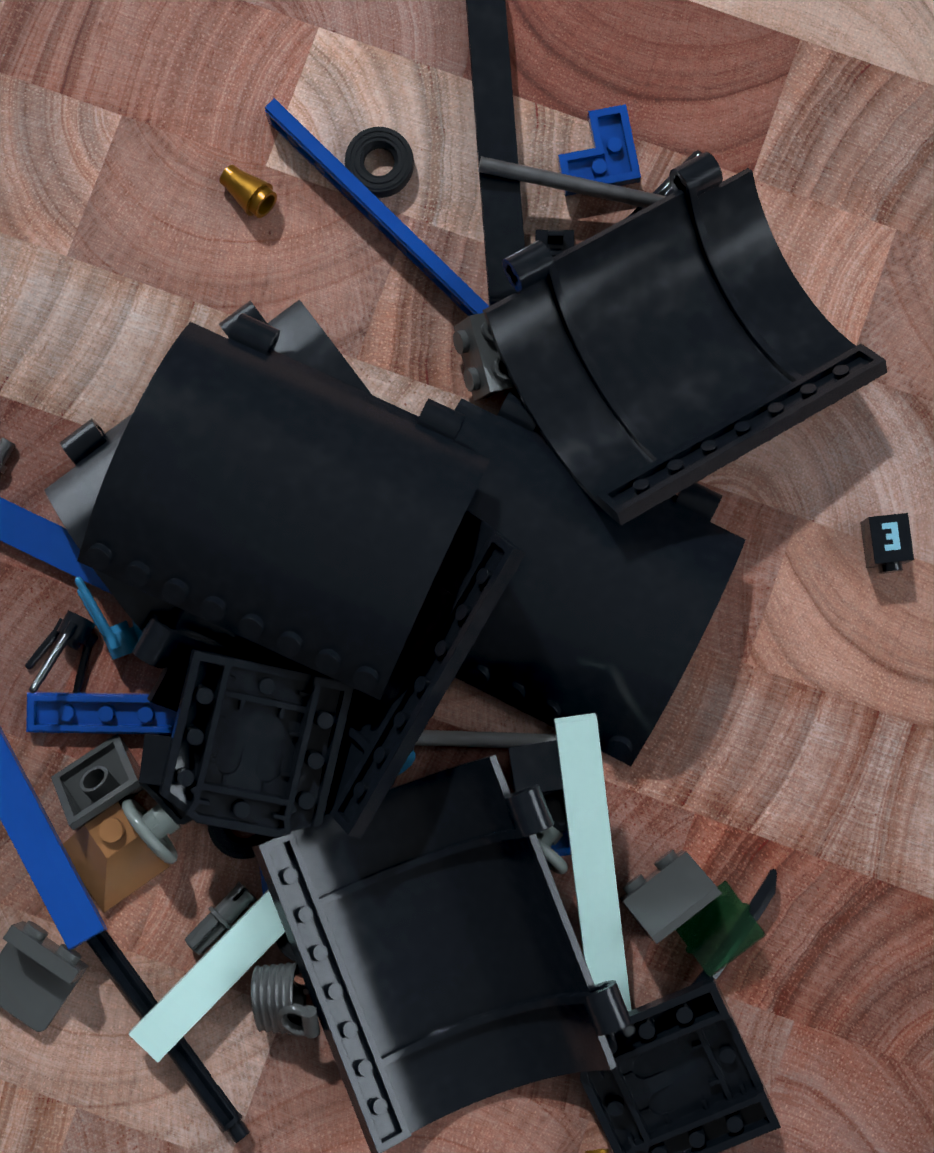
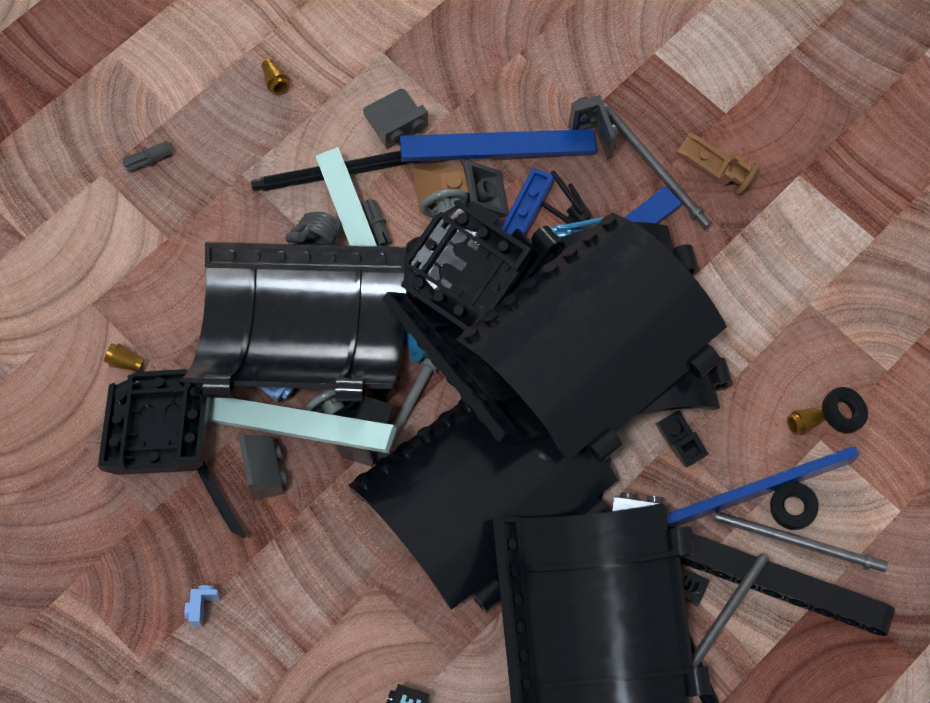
camera: 115 degrees right, 15 degrees down
(202, 128) = (855, 403): none -> black tyre
(360, 335) = (681, 439): none -> black slope
(412, 41) = (865, 561): none -> flat silver bar
(614, 152) = (738, 652): blue plate -> none
(720, 931) = (227, 488): clear green piece -> none
(901, 885) = (195, 609): none -> light blue bracket

